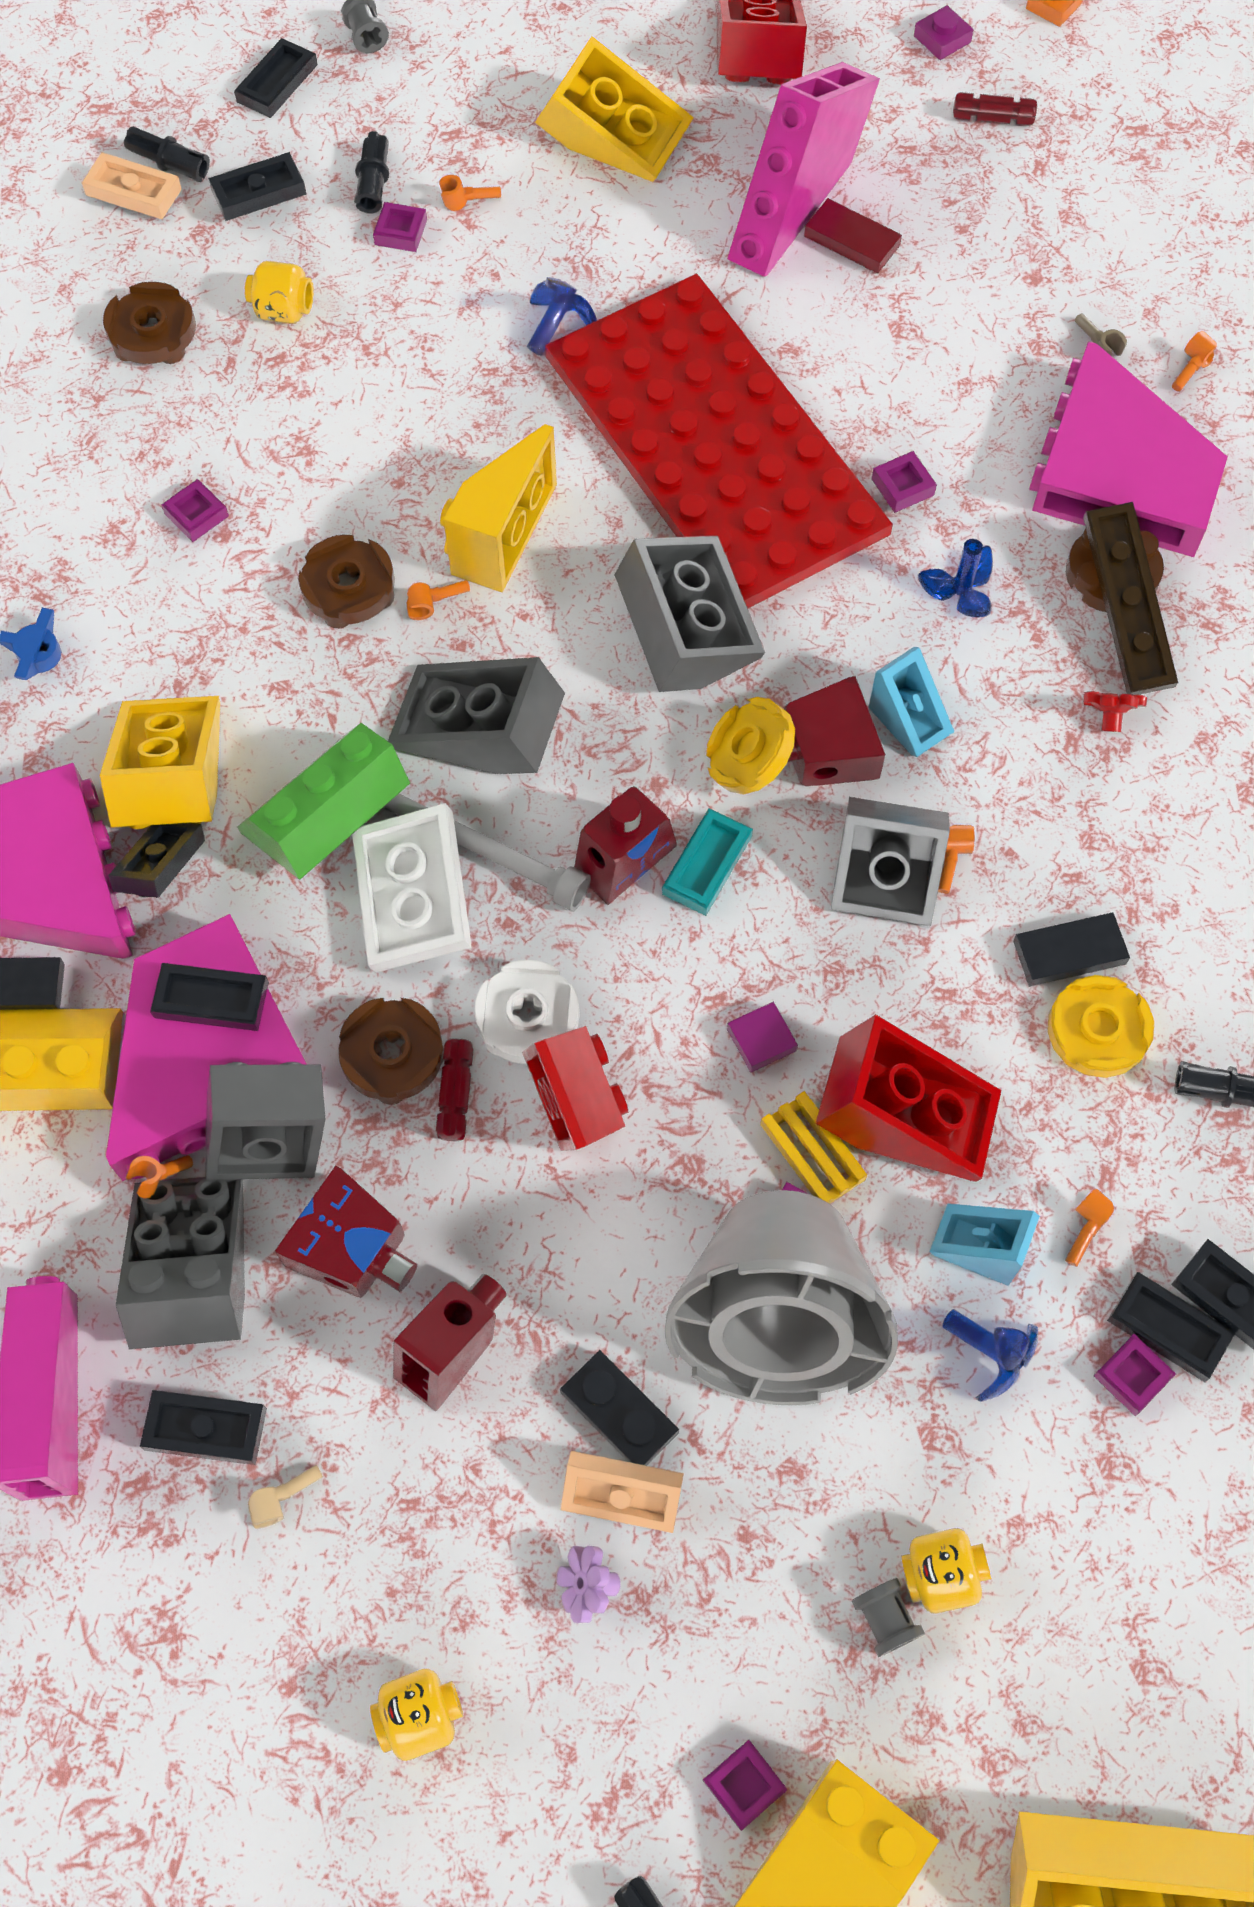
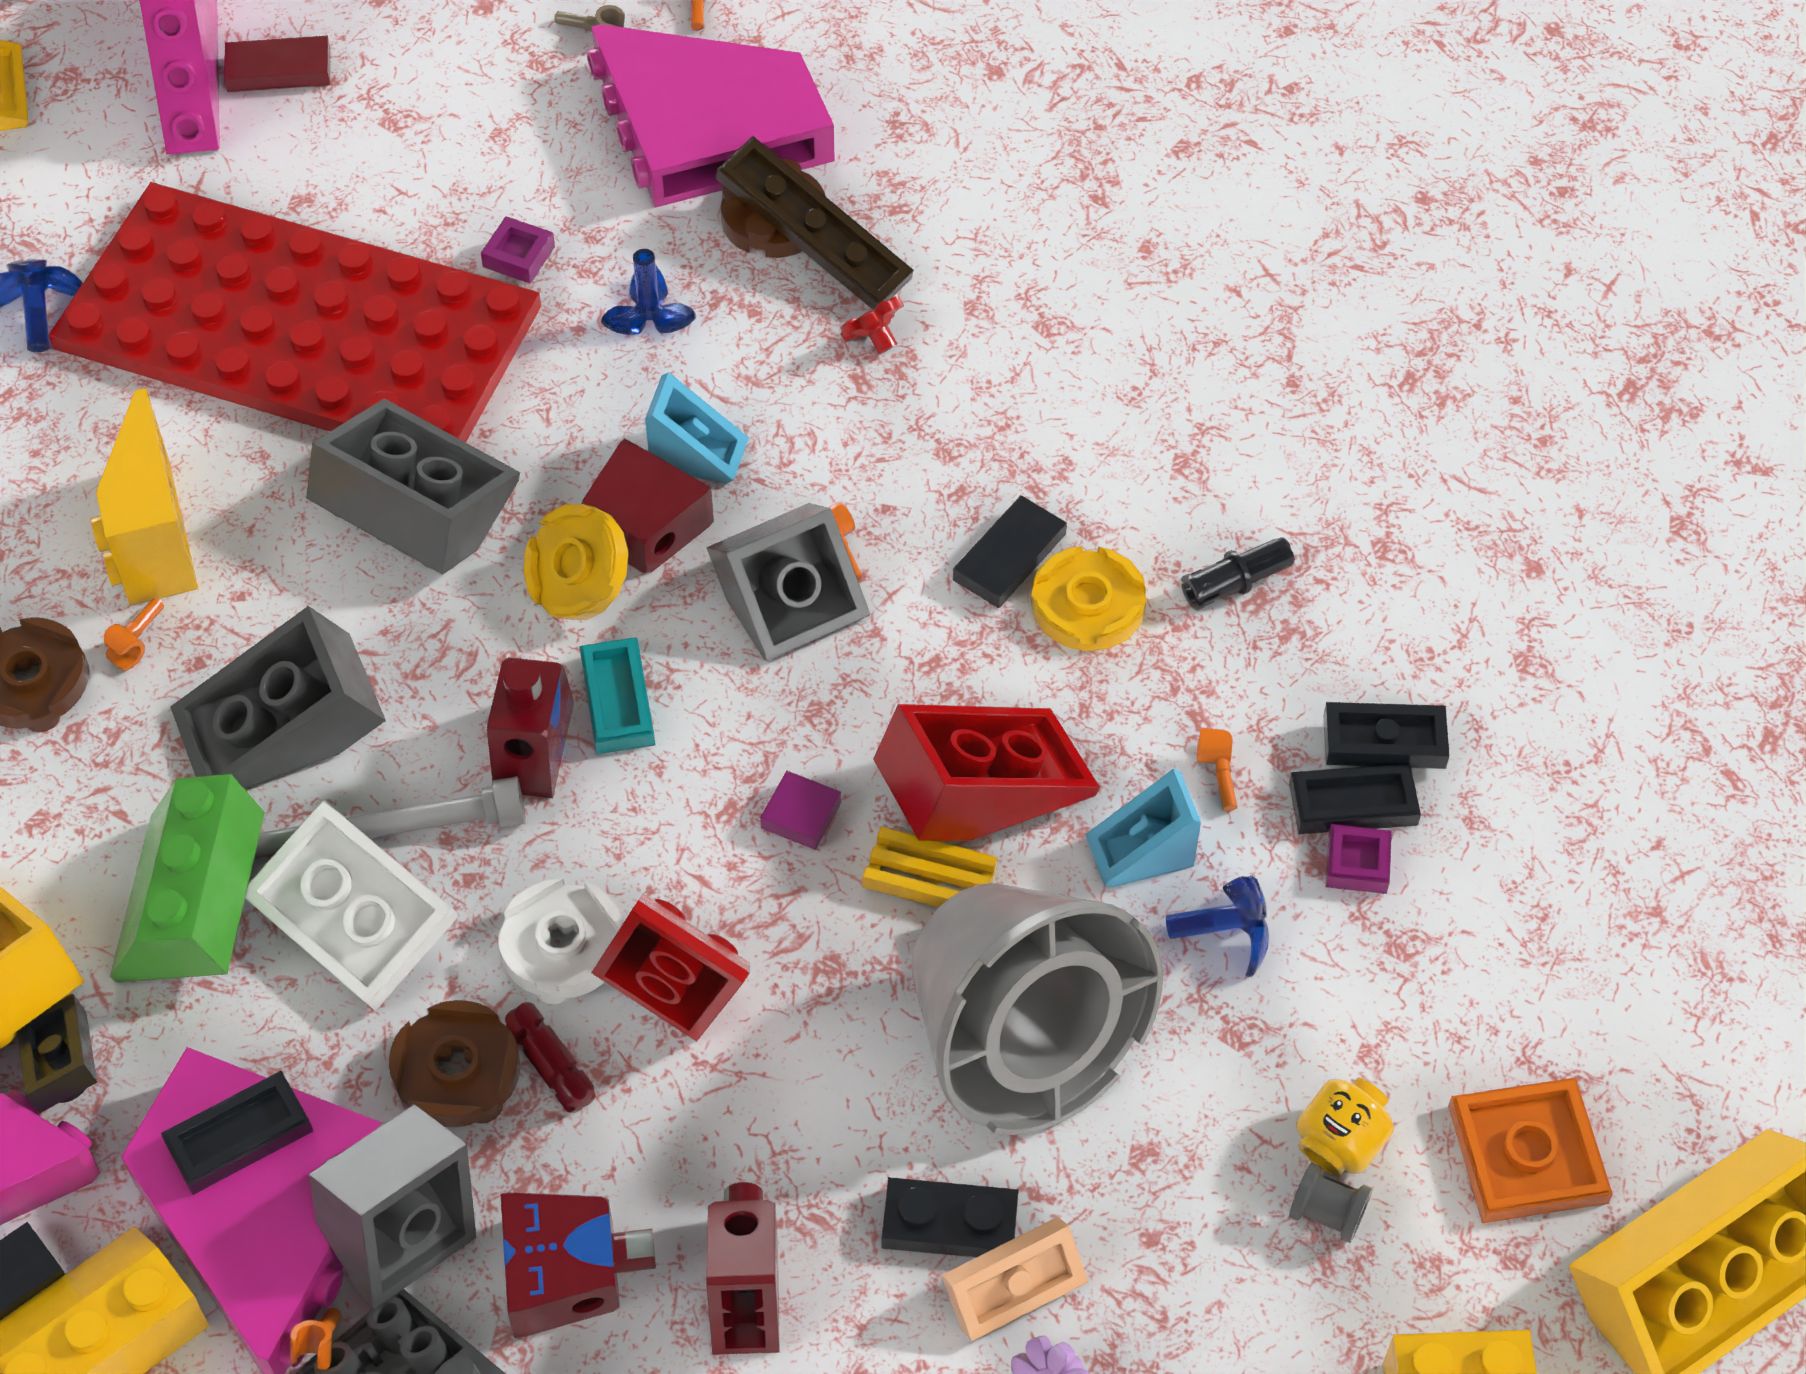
camera: 40 degrees left, 10 degrees down
(1073, 1696) = (1529, 1150): none -> orange tile

